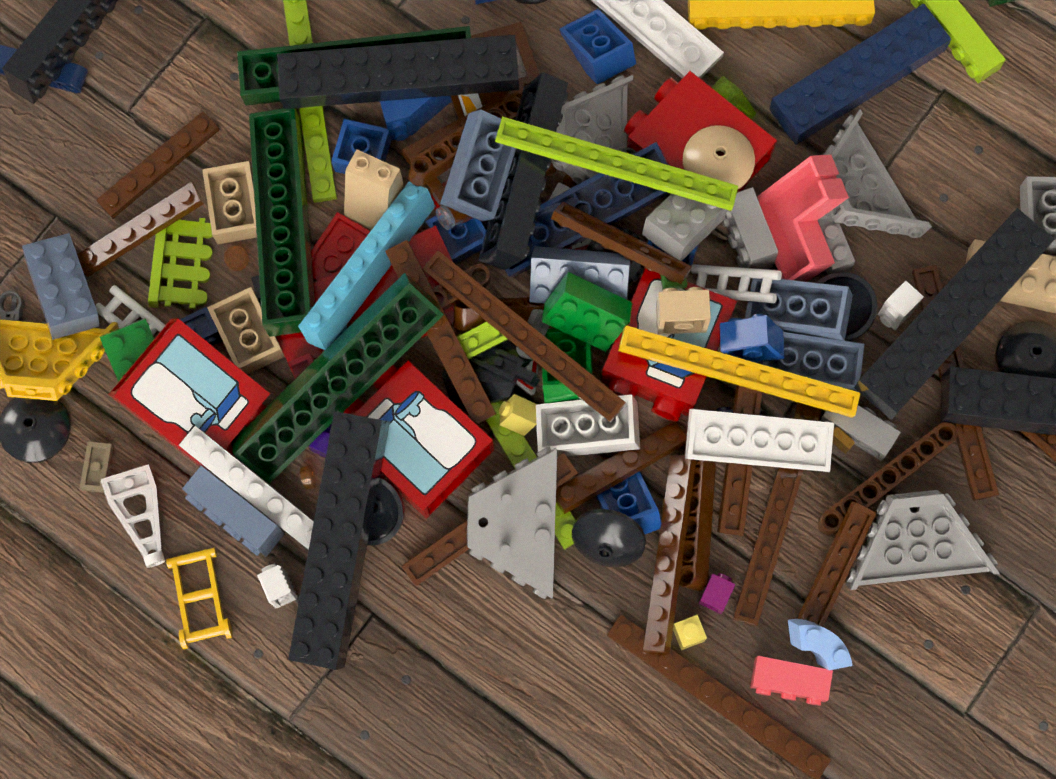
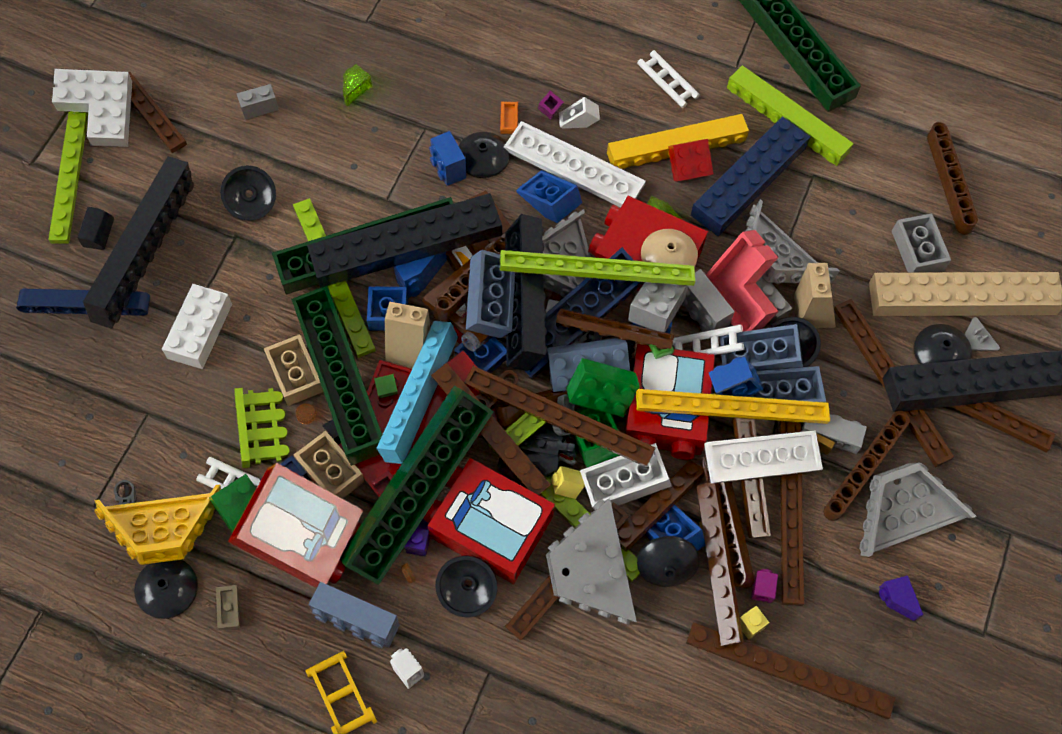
camera: 20 degrees left, 10 degrees down
(61, 286) = (166, 466): sand blue brick -> none
(128, 485) = (257, 616): white plate -> none
(134, 121) = (197, 326): none -> white brick
(140, 229) = (221, 407): plate -> none
(157, 165) = (223, 356): reddish brown plate -> none
(248, 485) = (378, 595): white plate -> none
(335, 247) = (386, 386): none -> bright green tile
(339, 540) = (450, 617): black brick -> none
(683, 311) = (678, 368): tan brick -> none
(787, 37) = (690, 160): none -> red brick
(791, 680) = (844, 641): coral brick -> none
(824, 644) = (860, 604): light blue brick -> none
(837, 564) = (850, 549): reddish brown plate -> none
(876, 646) = (901, 597): none -> dark purple slope
(889, 255) = (814, 296): none -> tan slope
(900, 306) = (835, 333): white brick -> none
(953, 313) = (879, 329): black brick -> none

